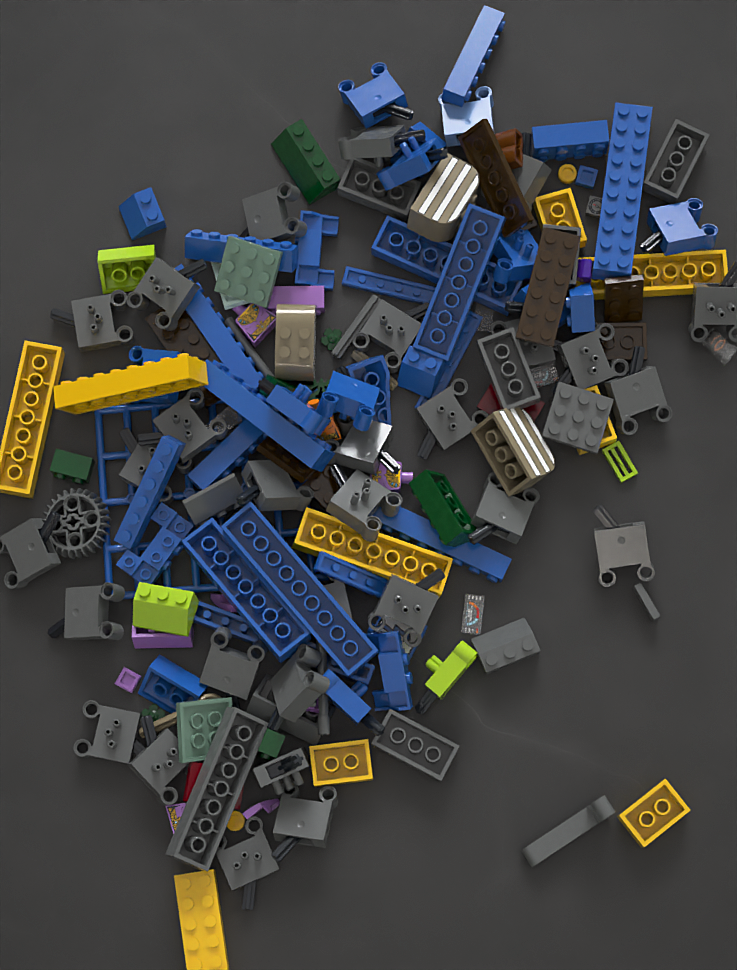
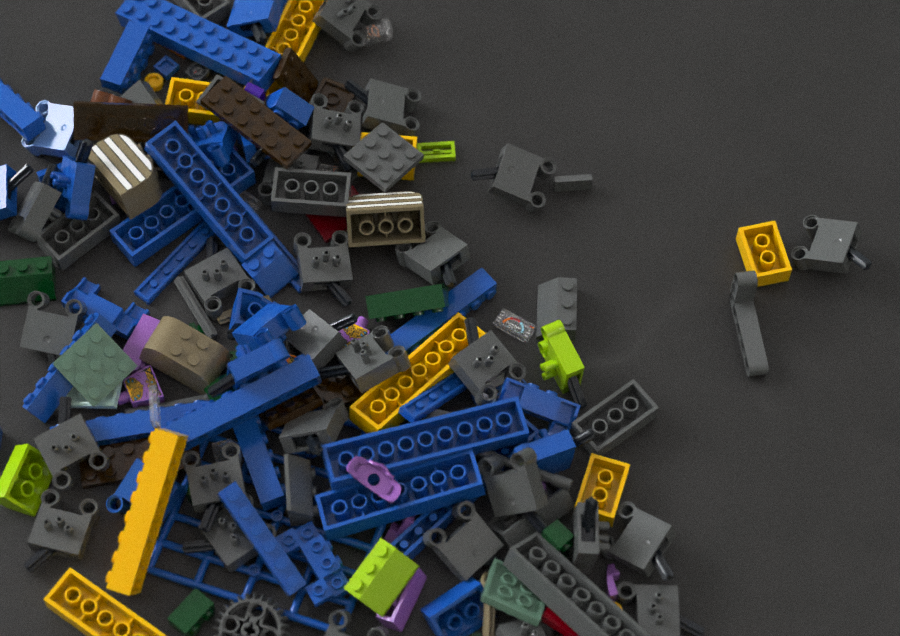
camera: 70 degrees left, 15 degrees down
(233, 341) = (154, 405): none -> clear tile
(238, 575) = (387, 487): none -> medium lavender piece
(690, 876) = (832, 246): none -> dark grey piece

